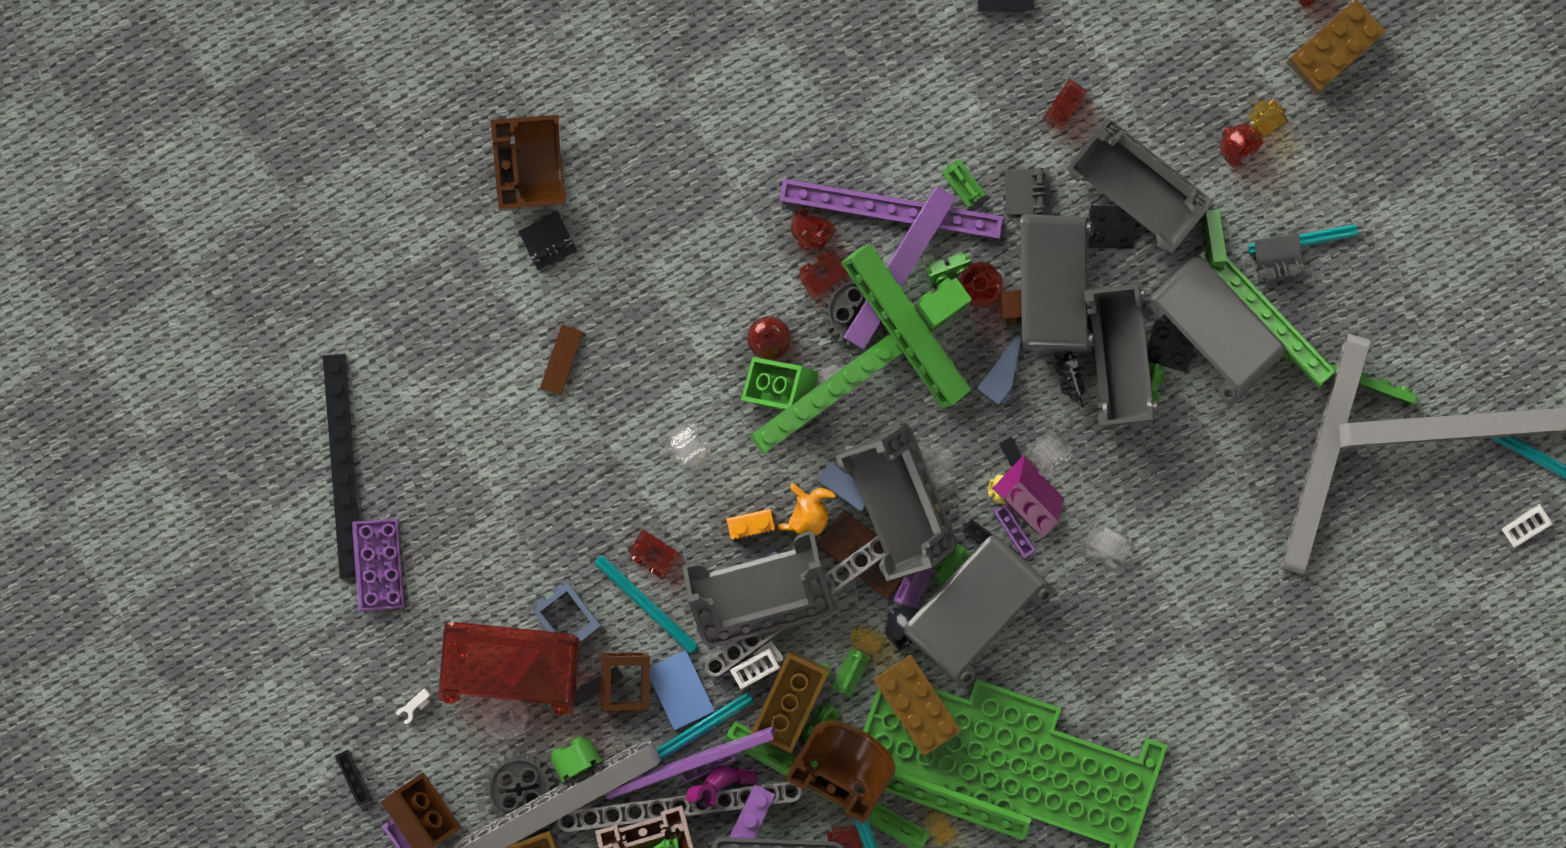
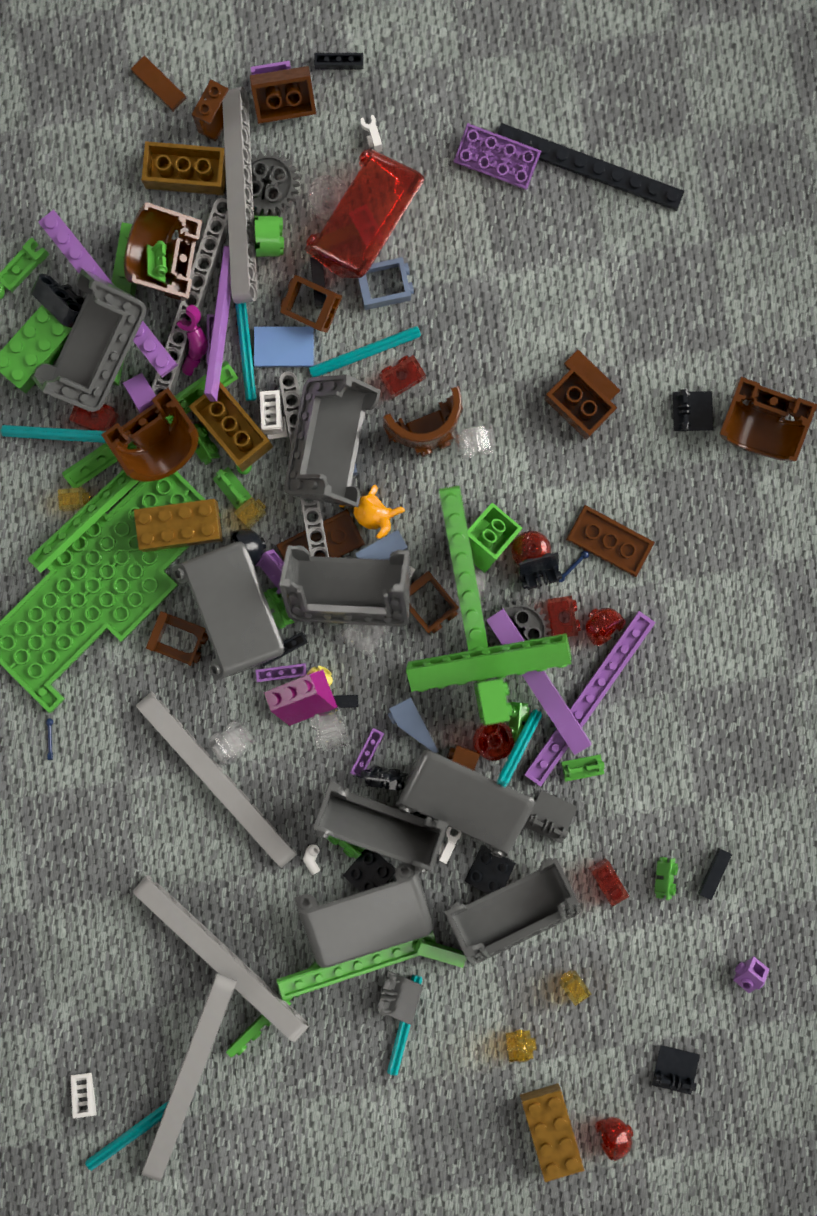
camera: 110 degrees right, 0 degrees up
(596, 358) = (580, 403): none -> reddish brown brick
(697, 498) = (428, 431): none -> reddish brown piece
(721, 262) = (610, 541): none -> reddish brown tile
(750, 524) = (388, 463): light orange brick -> none
(778, 315) = (540, 567): none -> black hinge
(782, 294) = (584, 555): none -> dark blue hinge
(800, 809) = (140, 392): none -> medium lavender hinge
(874, 389) = (449, 615): none -> reddish brown window
(975, 255) = (519, 748): none -> teal axle
(1024, 50) = (667, 870): none -> bright green hinge
(1045, 635) = (158, 631): none -> reddish brown panel
(1046, 405) = (368, 751): none -> medium lavender piece
(1109, 280) = (446, 849): none -> white plate
(1152, 546) = (216, 780): none -> light grey beam
(1177, 741) = (49, 722): none -> dark blue hinge
(1184, 90) = (574, 987): none -> clear yellow brick
(1184, 413) = (310, 858): none -> white arm
(1239, 143) = (509, 1011): clear red cylinder -> none

